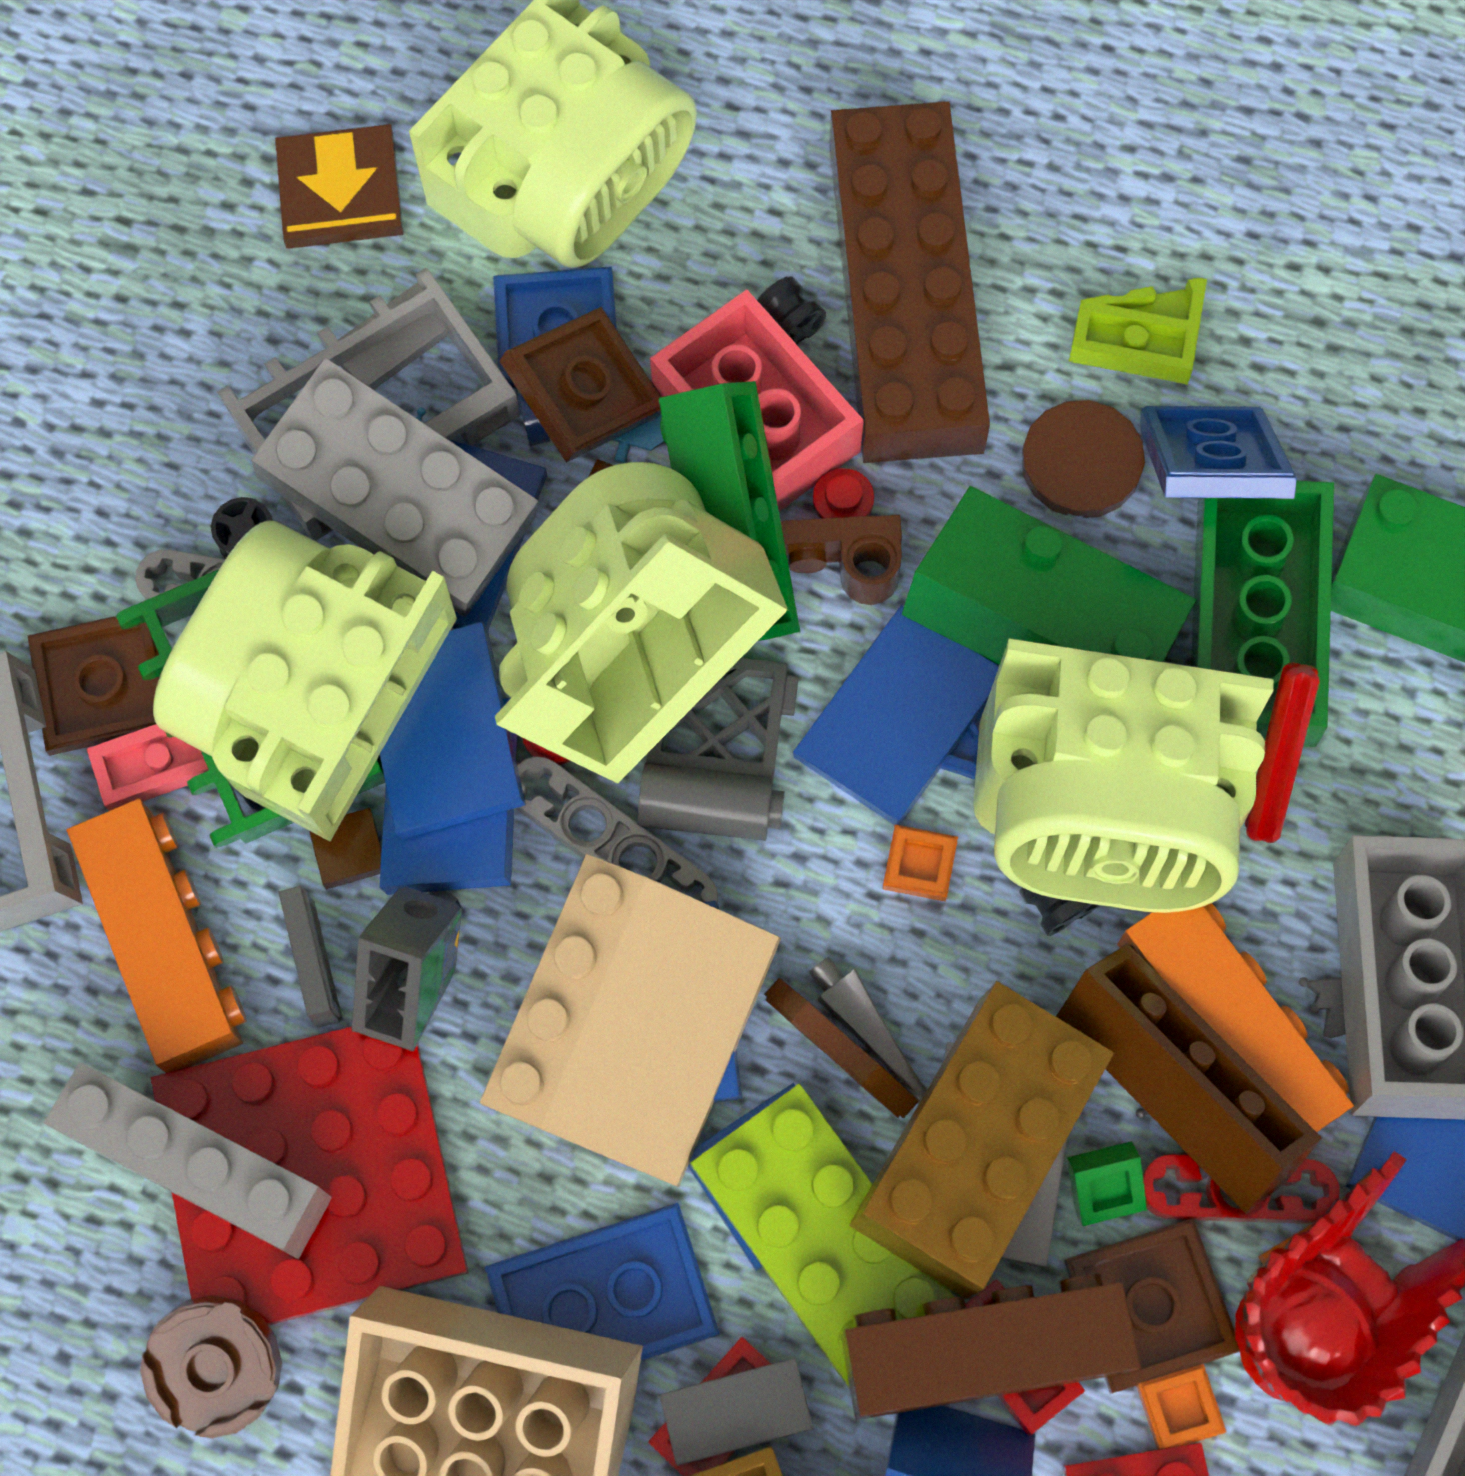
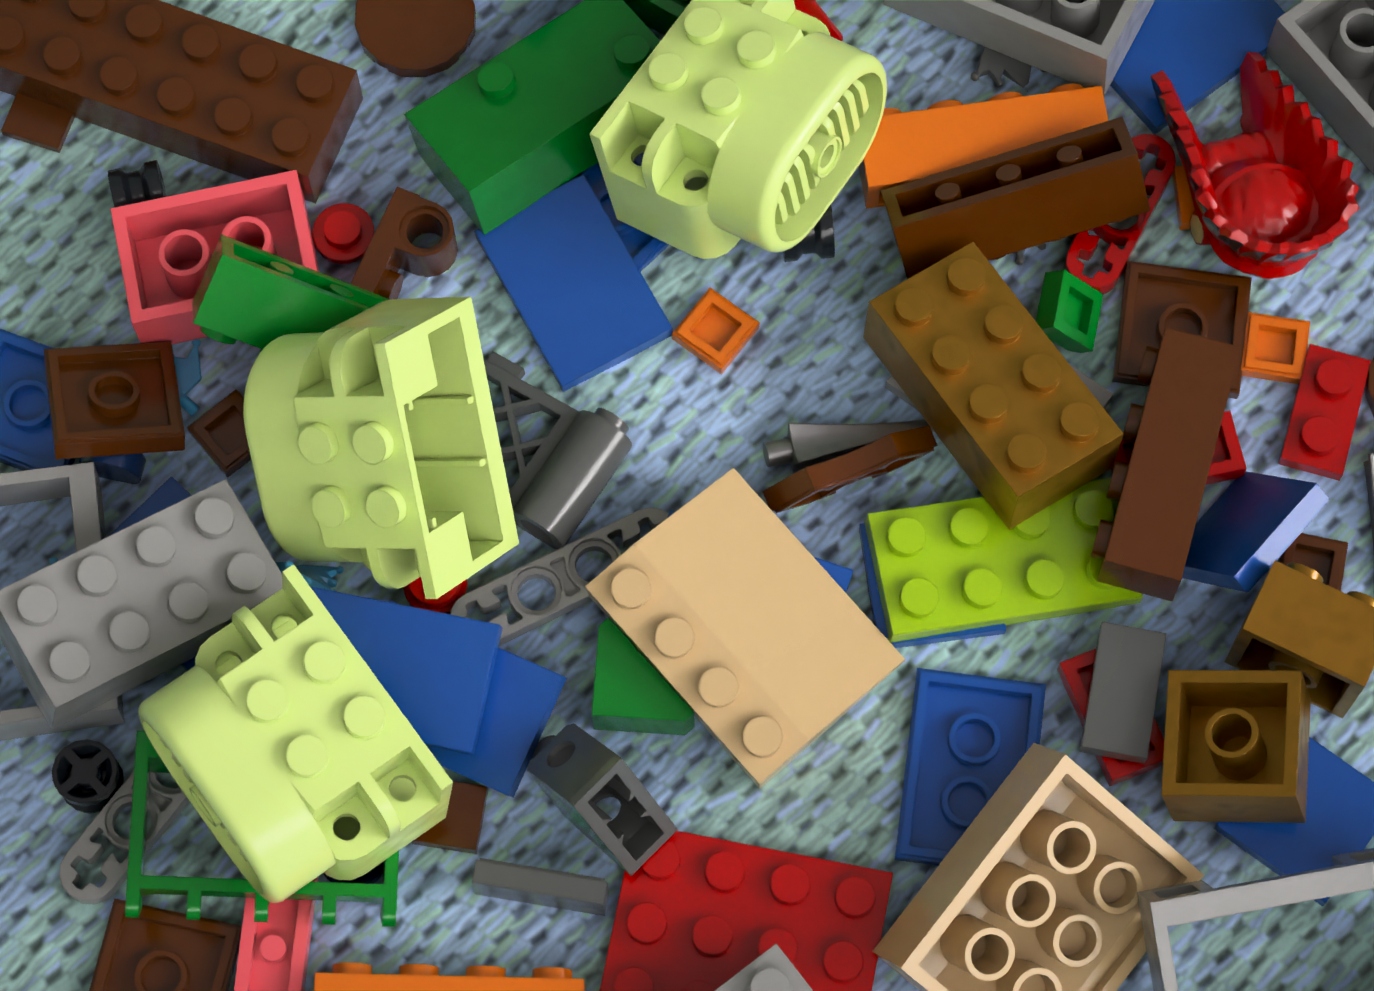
camera: 65 degrees left, 0 degrees up
(498, 615) = (315, 575): none -> dark azure piece
(520, 940) = (631, 692): none -> green slope
(815, 206) = (37, 123): none -> reddish brown tile

